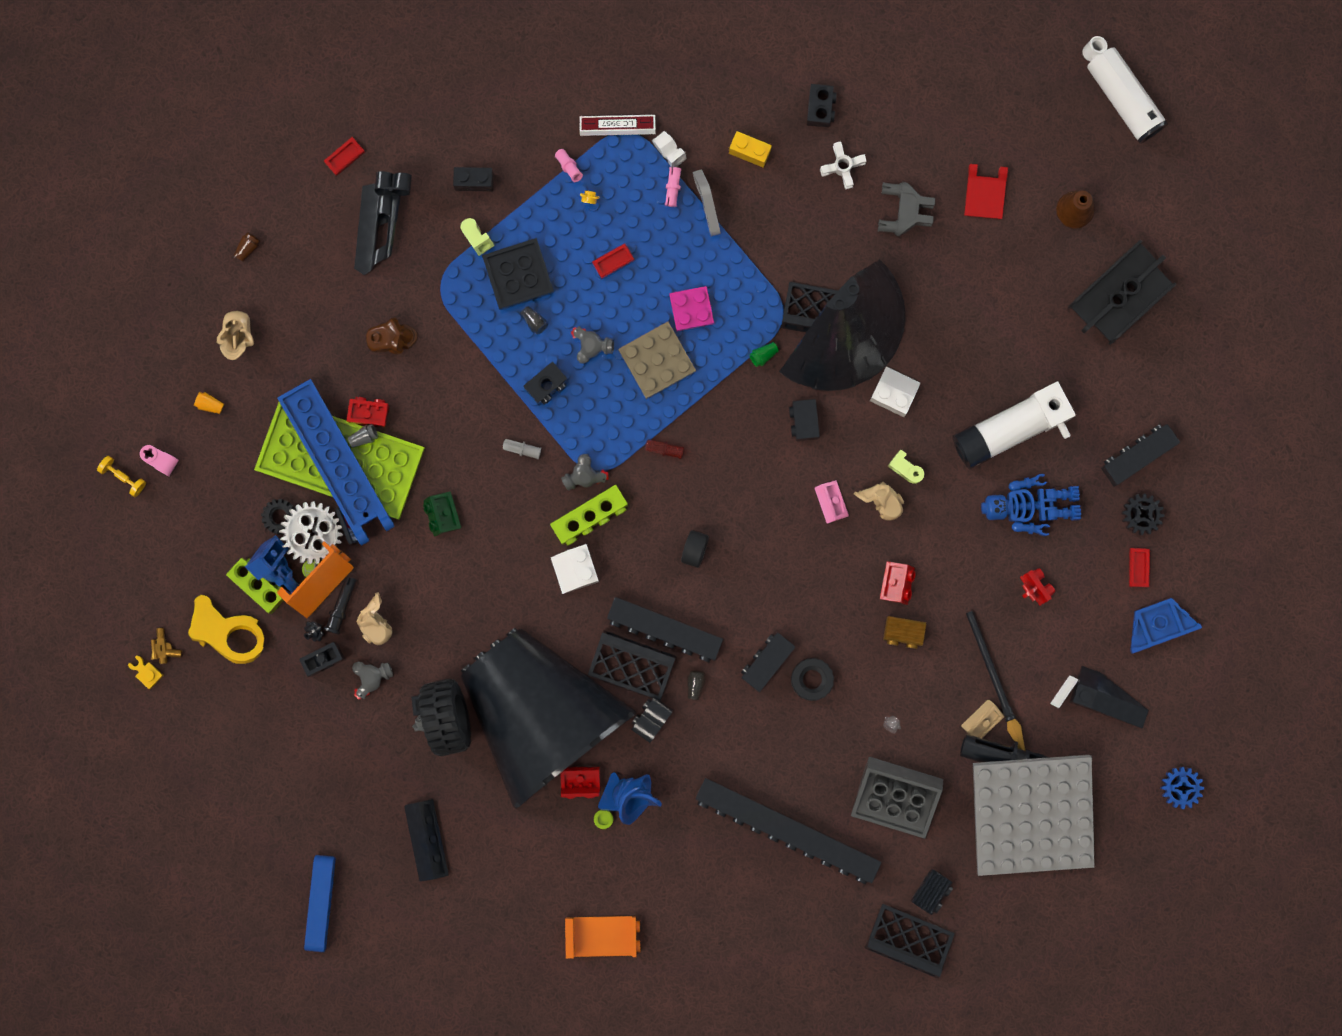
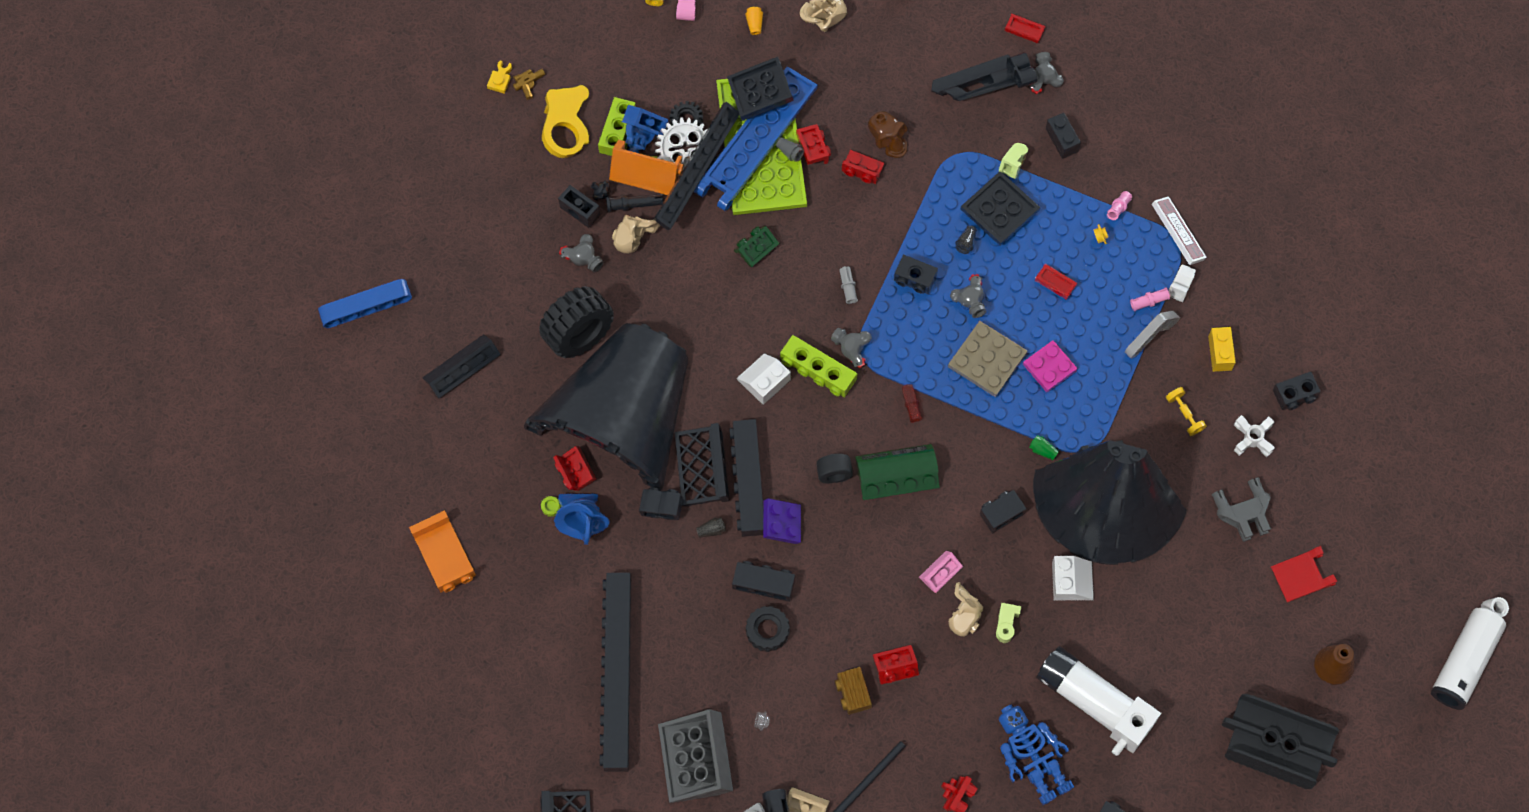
camera: 65 degrees right, 15 degrees down
(289, 434) = (760, 88): none -> black plate
(339, 531) = (696, 166): none -> black plate
(401, 161) = (1045, 73): none -> dark grey animal
(411, 377) = (862, 167): none -> red bracket
(721, 619) = (782, 521): none -> dark purple plate
(723, 493) = (897, 472): none -> dark green brick
(792, 211) = (1176, 395): none -> yellow wheel

